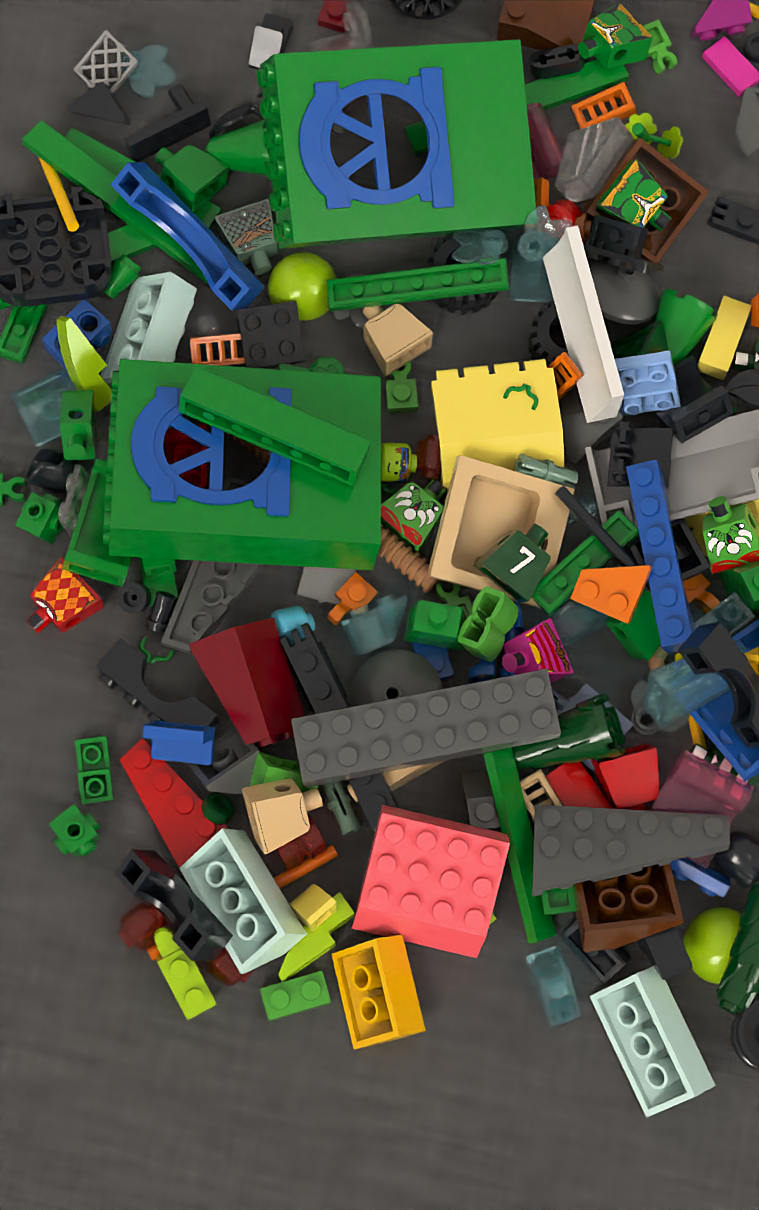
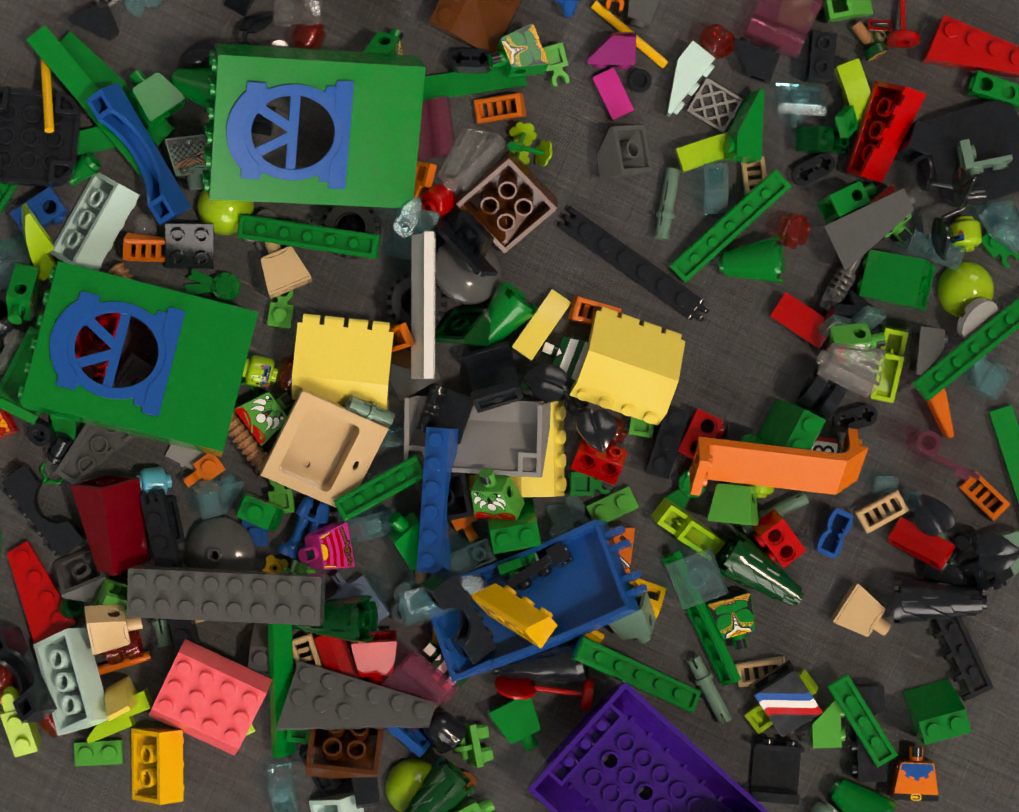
camera: 15 degrees right, 15 degrees up
(180, 742) = (51, 554): blue panel -> none
(187, 121) = (163, 47): black piece -> none
(274, 425) = (161, 344): green brick -> none
(480, 246) = (360, 221): clear light blue plate -> none
(486, 627) = (293, 524): bright green brick -> none
(516, 562) = (328, 479): dark green torso -> none
(519, 389) = (368, 348): green piece -> none
(585, 226) = (451, 213): dark orange plate -> none
(594, 527) = (396, 472): black bar -> none
(612, 589) = (392, 519): orange wing -> none
(635, 198) = (493, 206): torso -> none
(648, 383) = (462, 359): light blue slope -> none

